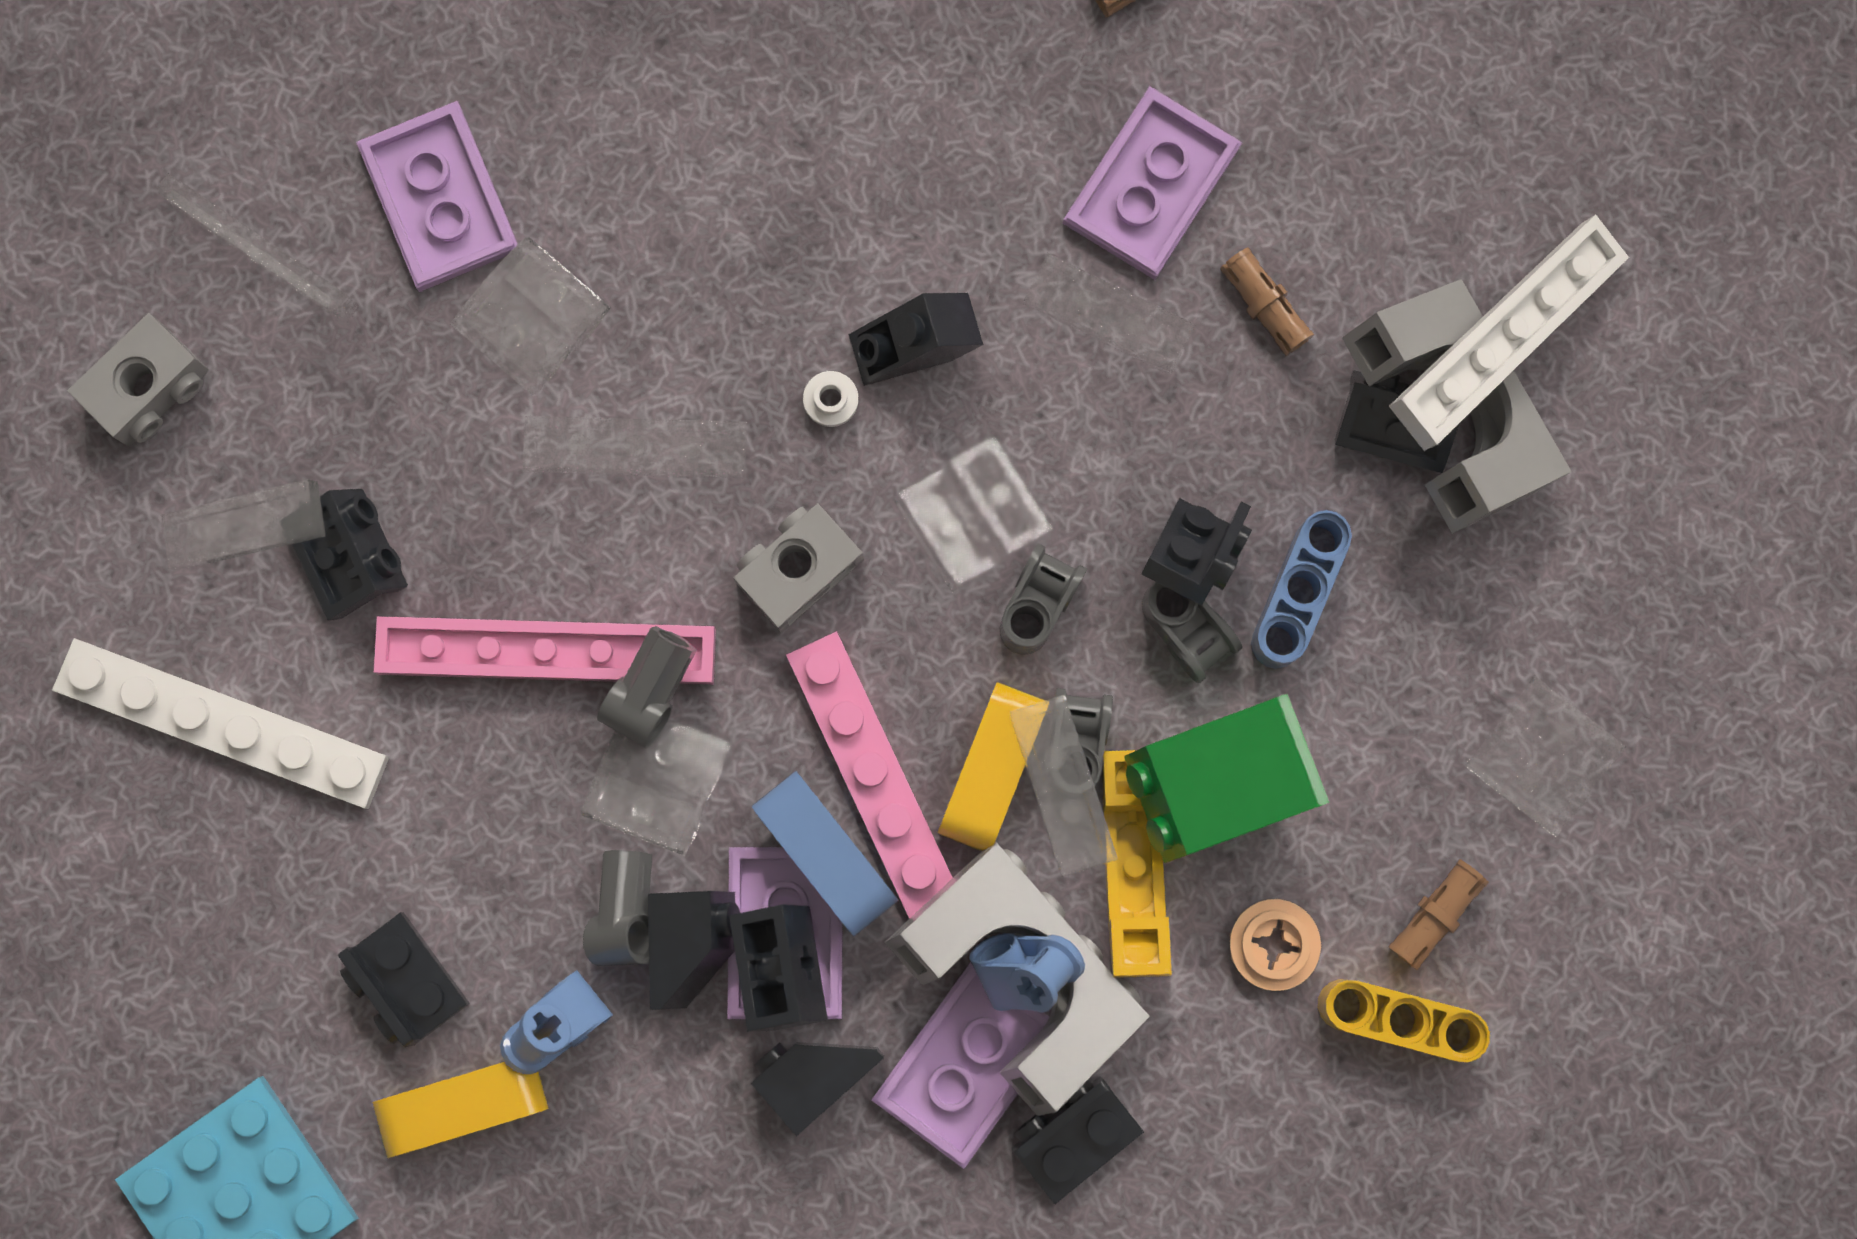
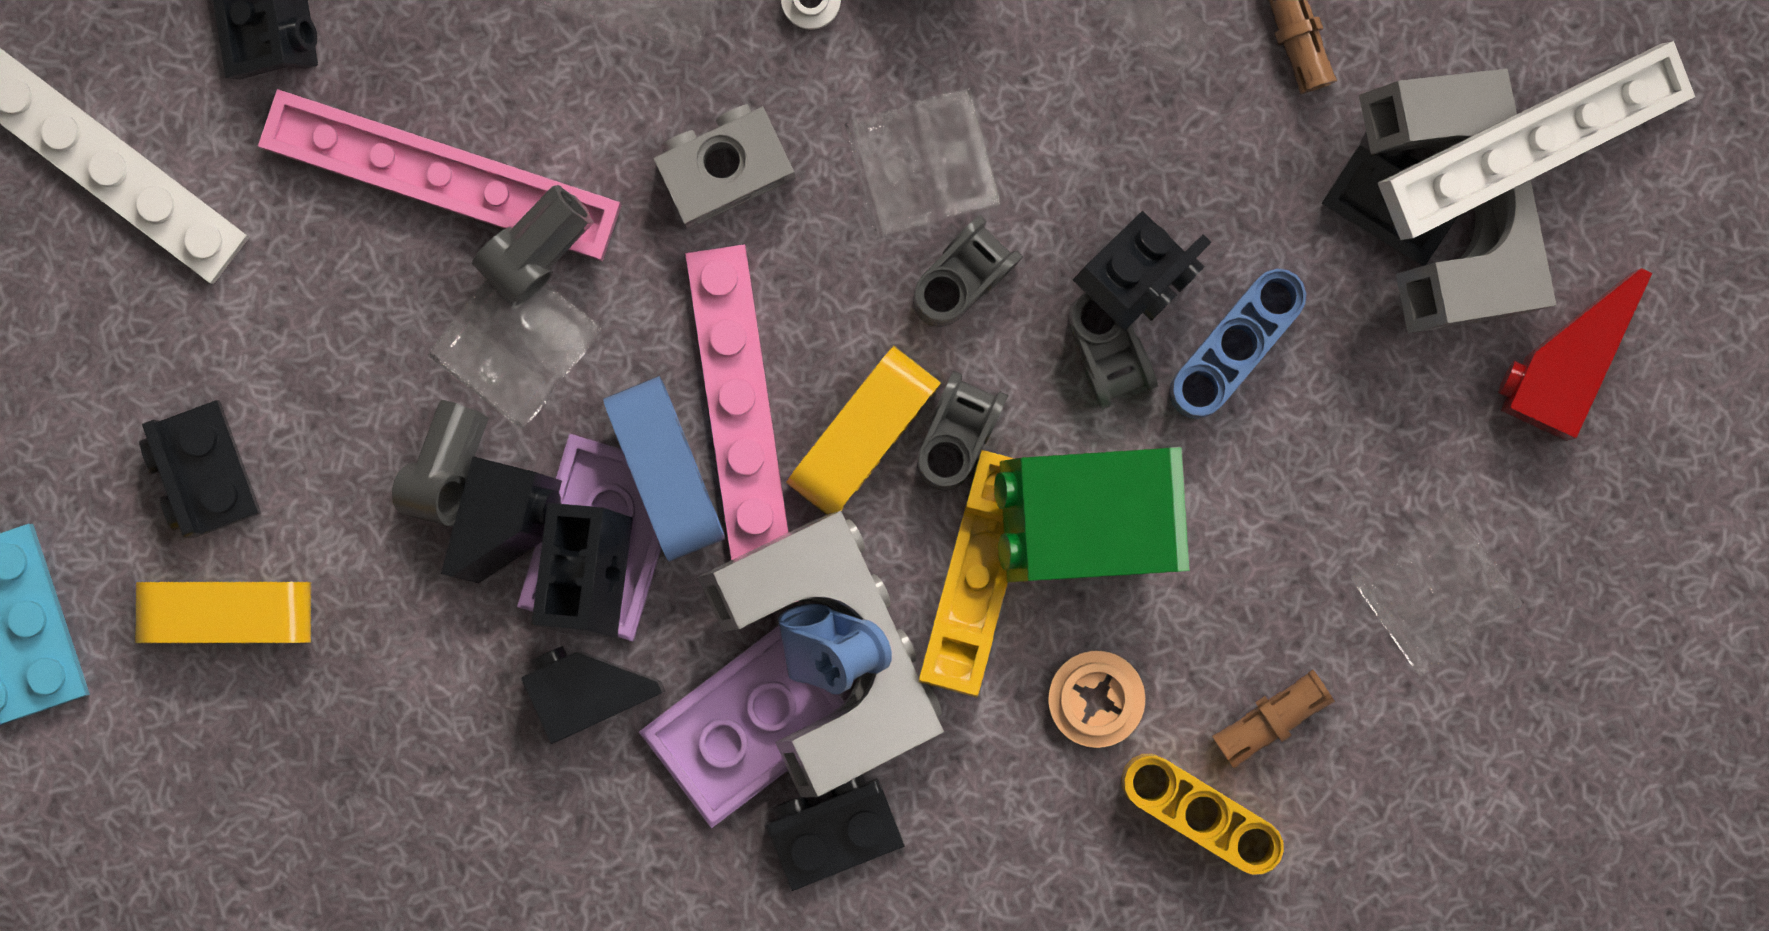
camera: 25 degrees right, 5 degrees up
(553, 1025) = (339, 560): medium blue piece -> none
(1063, 786) = (926, 472): clear tile -> none
(1598, 527) = (1566, 371): none -> red slope

